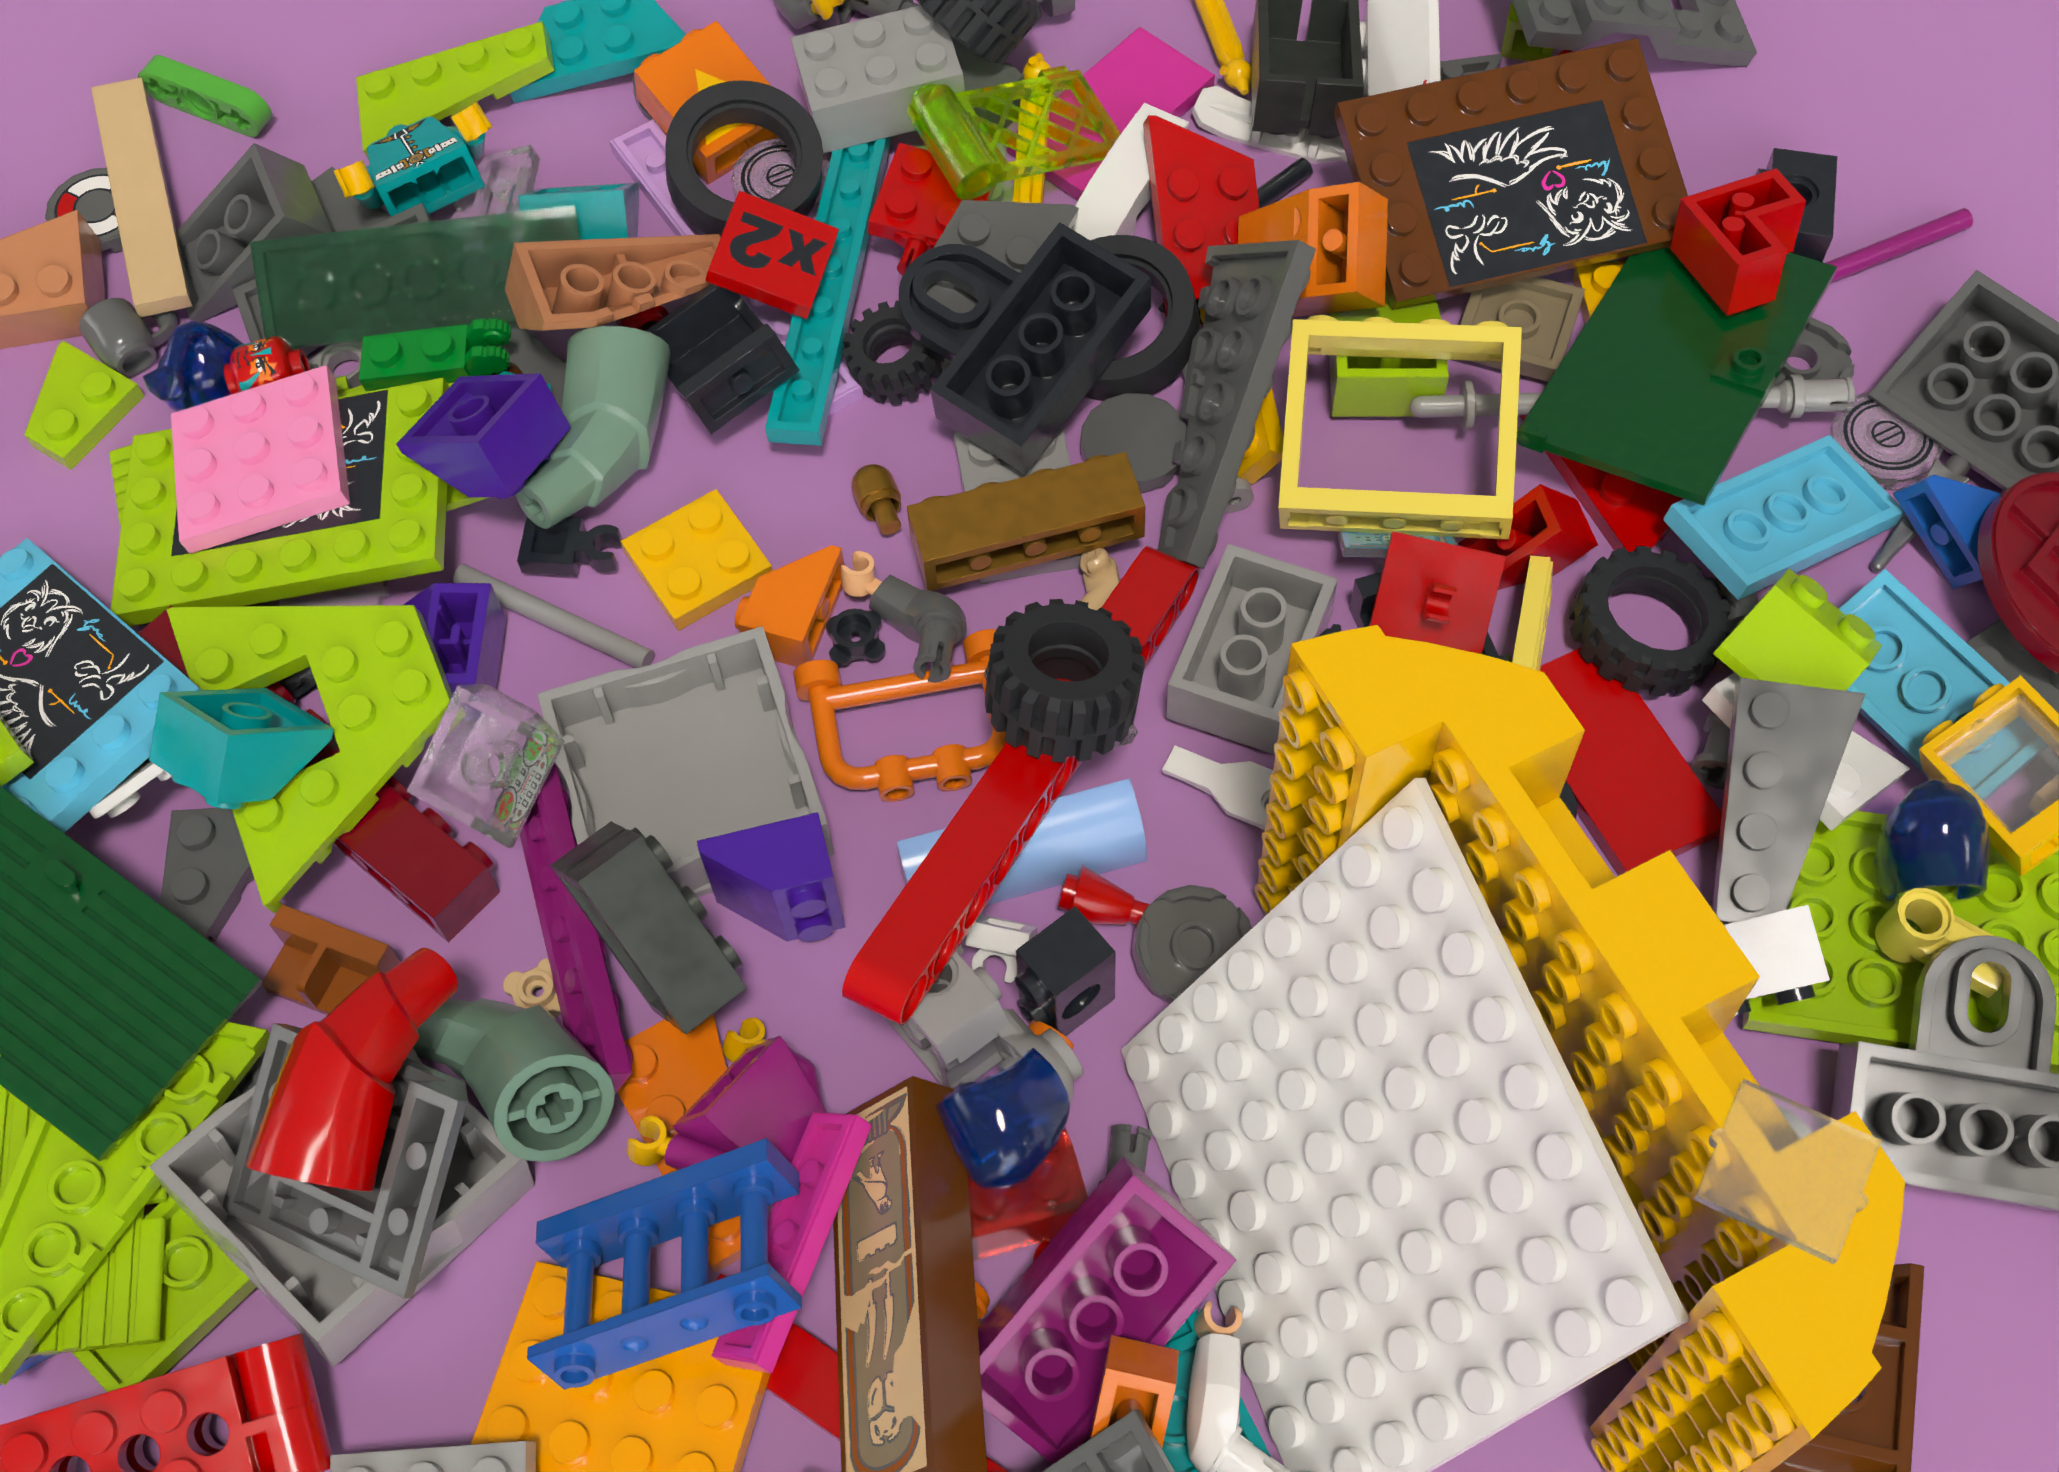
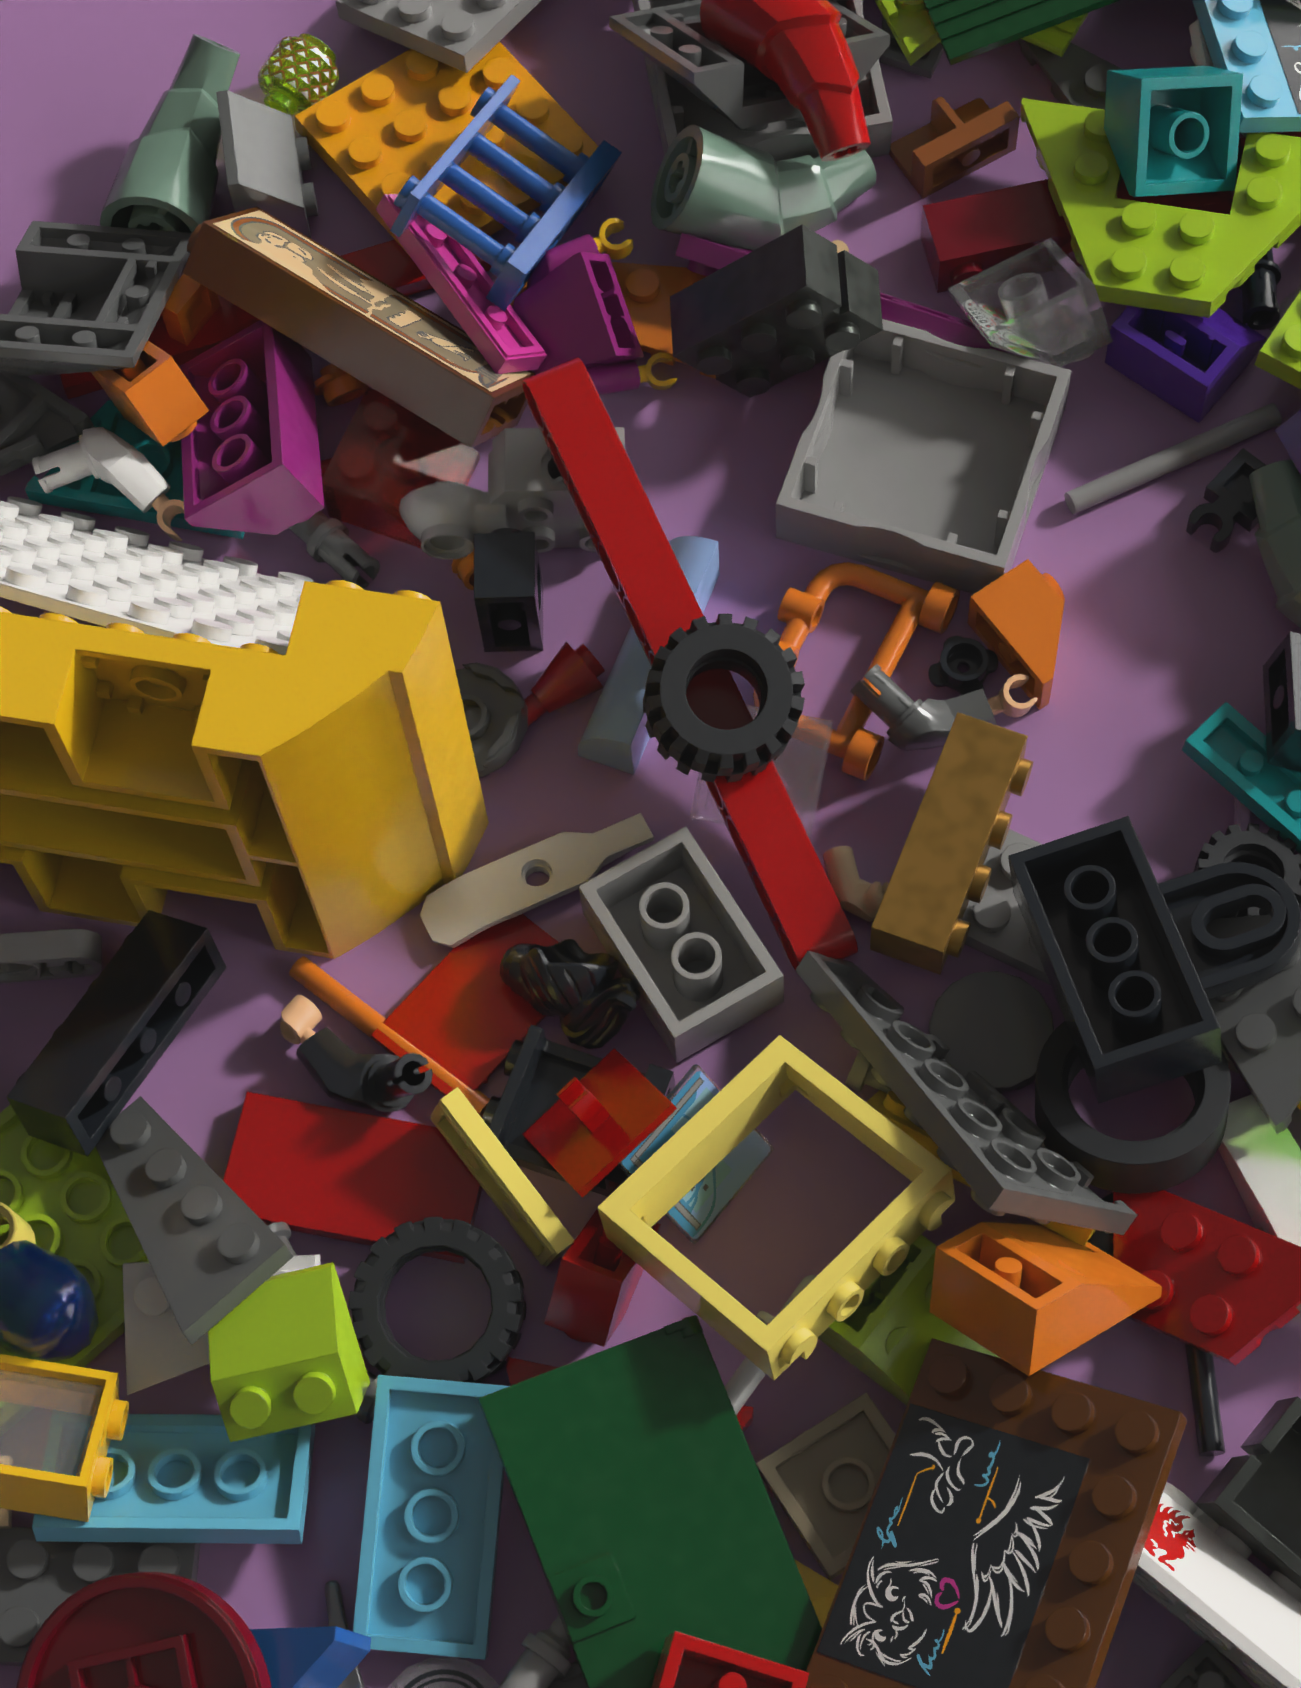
camera: 130 degrees right, 5 degrees up
(696, 559) = (1147, 598): yellow plate -> none
(776, 877) = (753, 448): dark purple slope -> none
(877, 497) = (1098, 774): pearl gold cylinder -> none
(998, 938) = (587, 591): white tile -> none
(1007, 1121) = (411, 435): clear blue piece -> none

